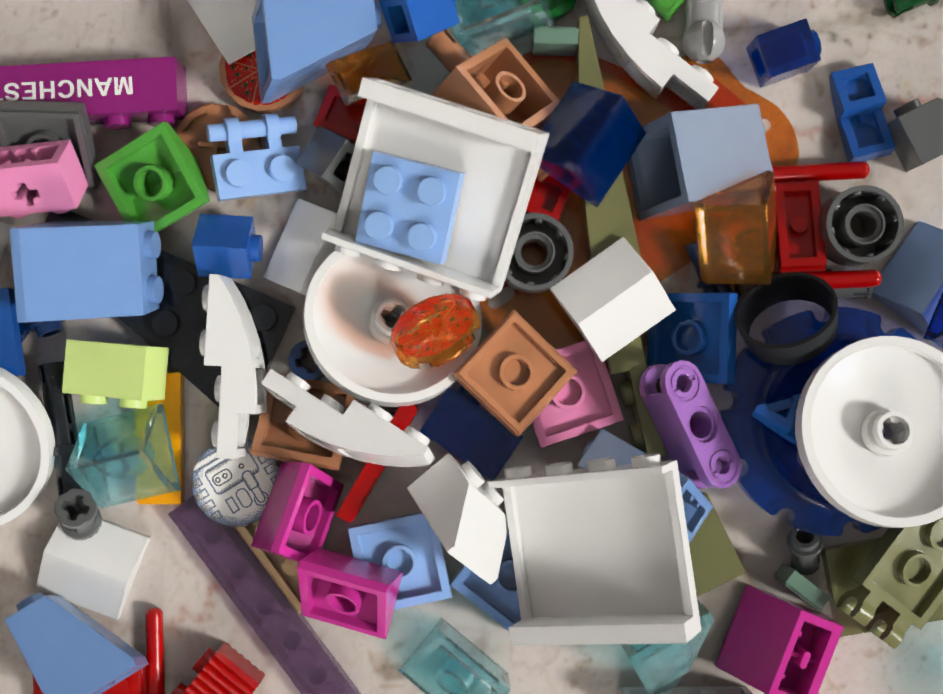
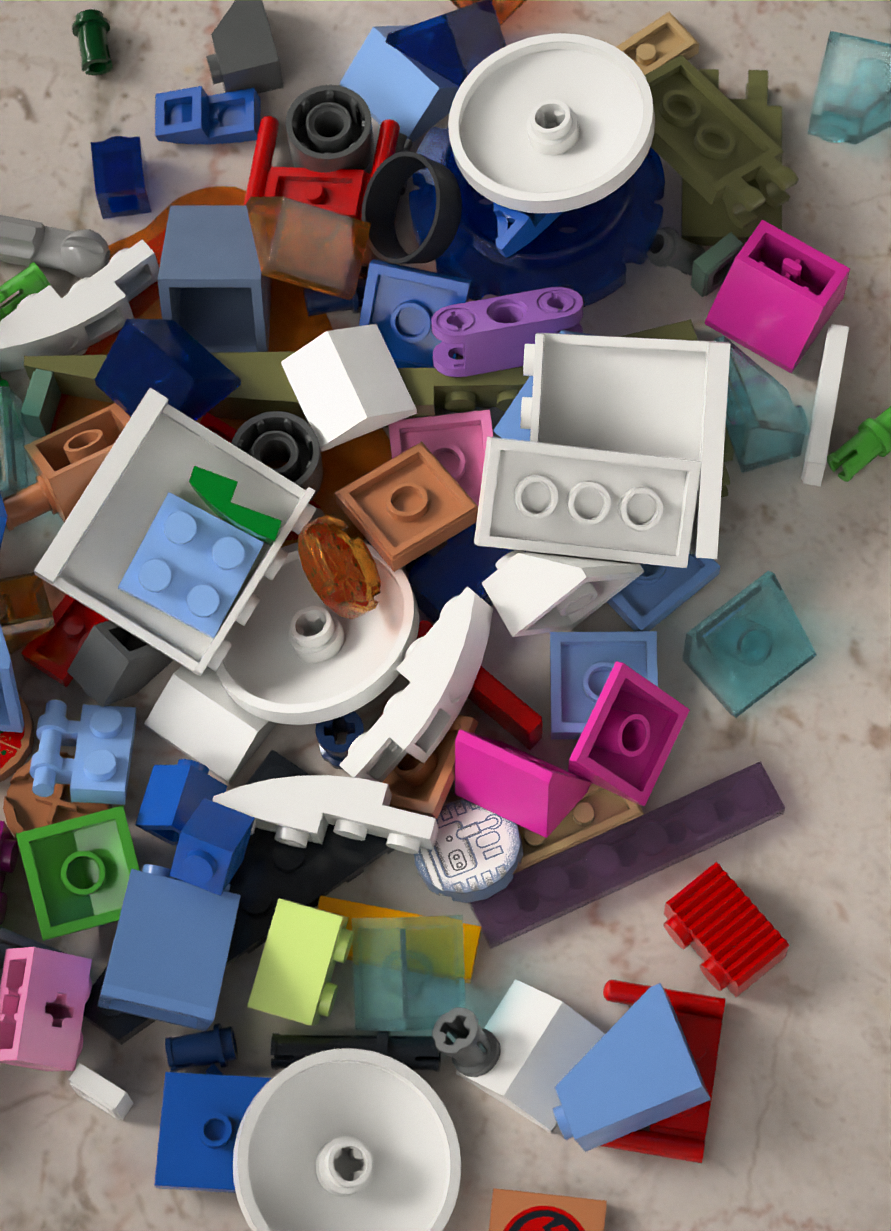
camera: 70 degrees left, 20 degrees down
(172, 283) = (211, 846): none -> blue brick
(452, 243) = (217, 495): none -> green slope
(530, 531) = (587, 502): none -> white plate

